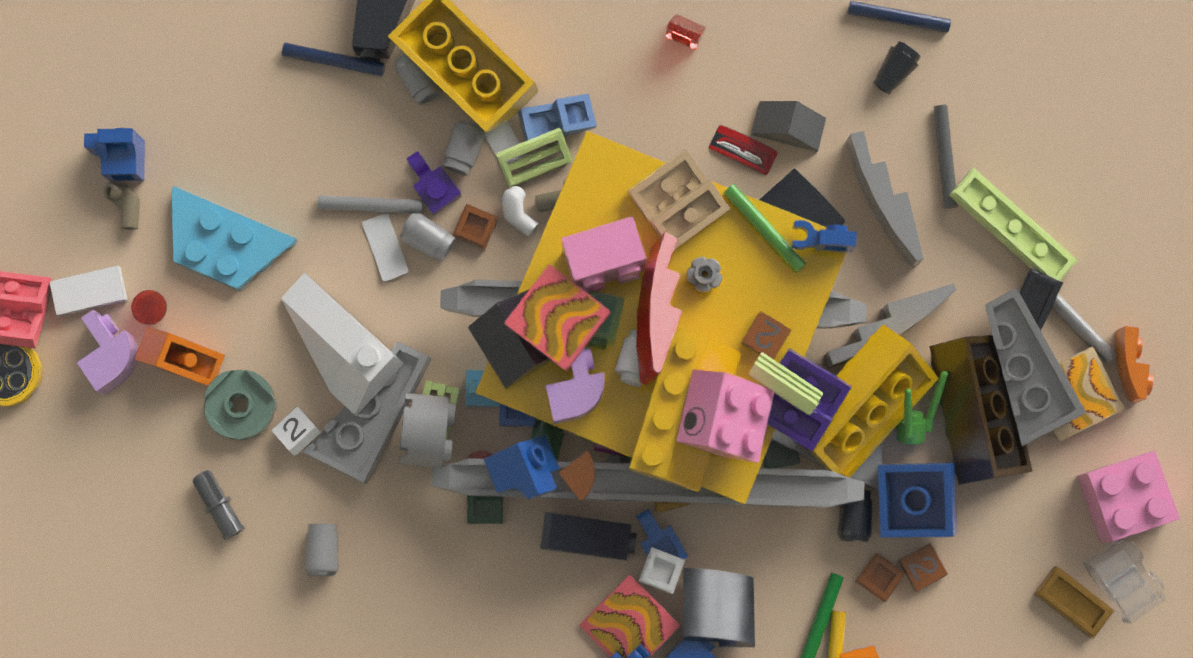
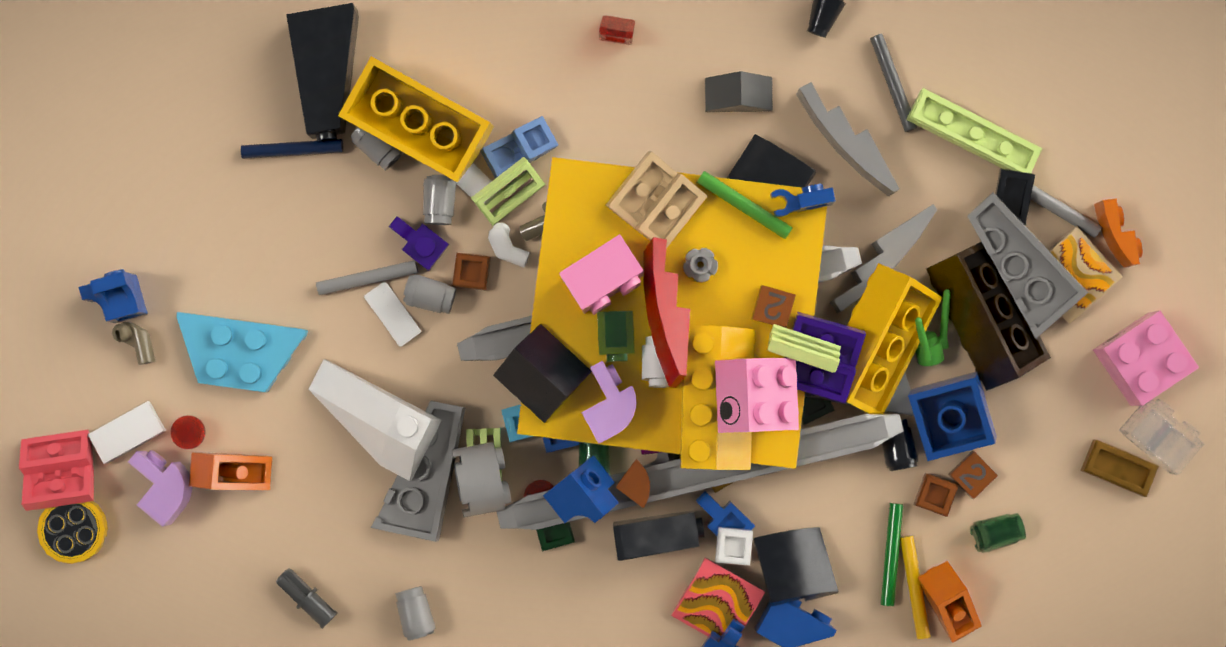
camera: 10 degrees left, 5 degrees up
(219, 404) = (306, 518): sand green plate -> none
(296, 431) = (359, 510): white tile -> none
(557, 317) = (575, 347): slope -> none
(743, 149) = (702, 128): sticker -> none
(932, 631) = (997, 532): none -> clear green piece

